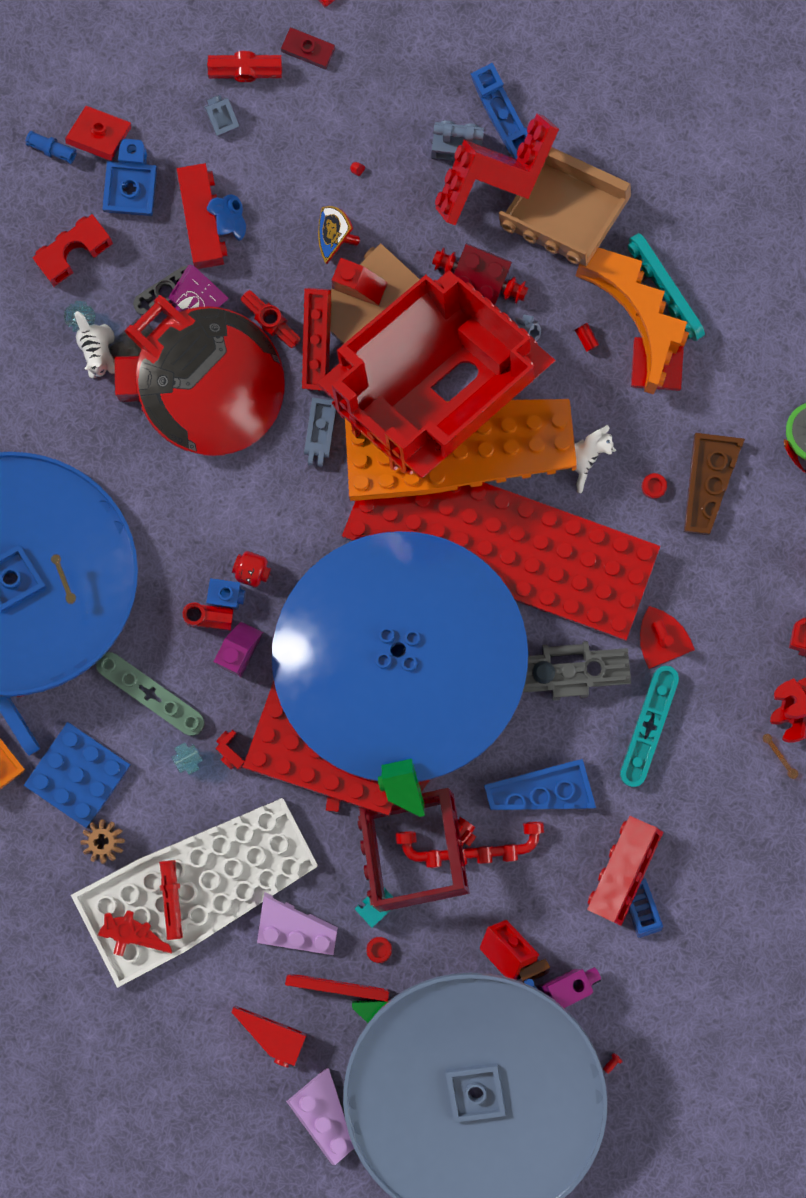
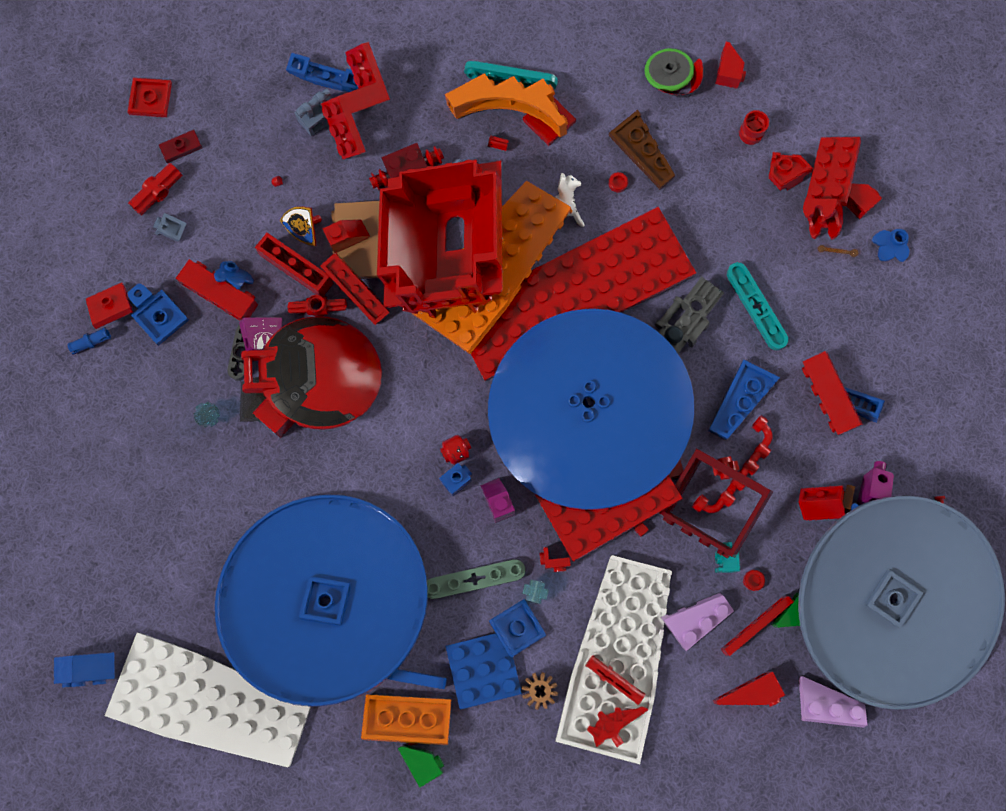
camera: 45 degrees left, 5 degrees down
(70, 597) = (373, 572): clear orange hinge -> none
(86, 235) = (161, 367): red arch -> none
(94, 343) = (231, 420): white animal -> none
(140, 771) = (517, 628): none -> blue tile
(211, 616) = (461, 500): red piece -> none
(288, 261) = (294, 265): none -> red brick
(320, 430) = (409, 336): sand blue hinge -> none
(402, 786) = (674, 472): green slope -> none
(568, 207) = (416, 85): medium nougat panel -> none
(662, 638) = (710, 255): red shield -> none

